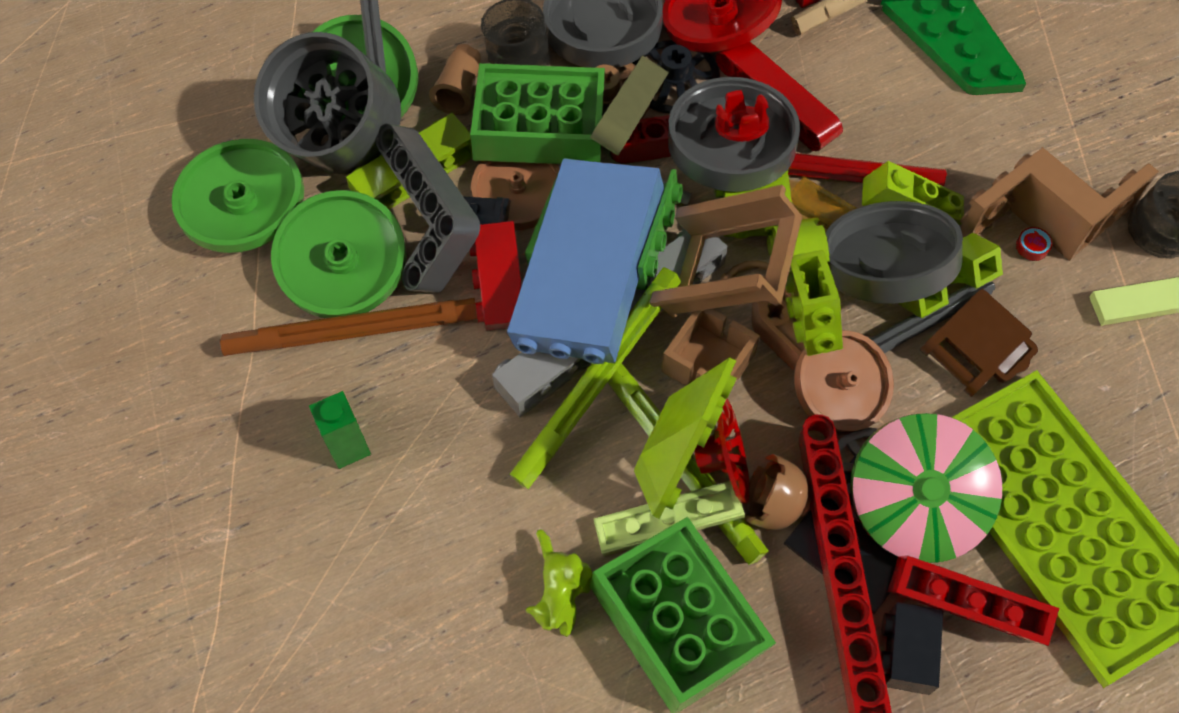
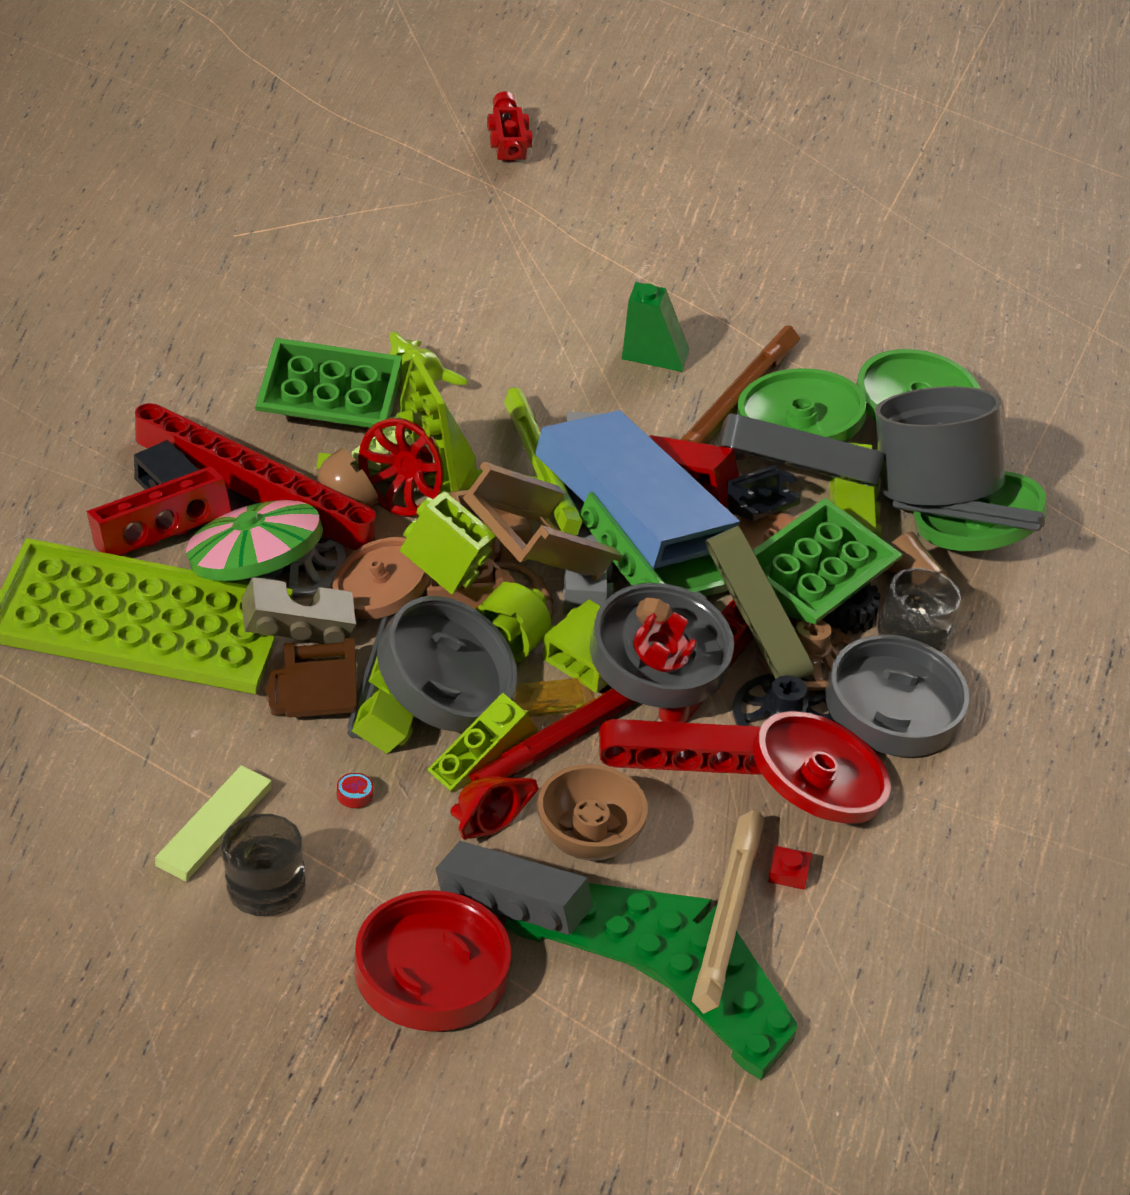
camera: 125 degrees right, 20 degrees down
(717, 146) = (652, 605): none -> medium nougat tile
(913, 79) = (592, 811): none -> medium nougat piece
(928, 378) = (272, 612): none -> dark tan arch
(961, 151) = (491, 804): none -> red hat
(1018, 77) = (516, 887): none -> dark grey brick
(1055, 200) = (367, 801): medium nougat bracket -> none
(1108, 88) = (432, 960): none -> red brick

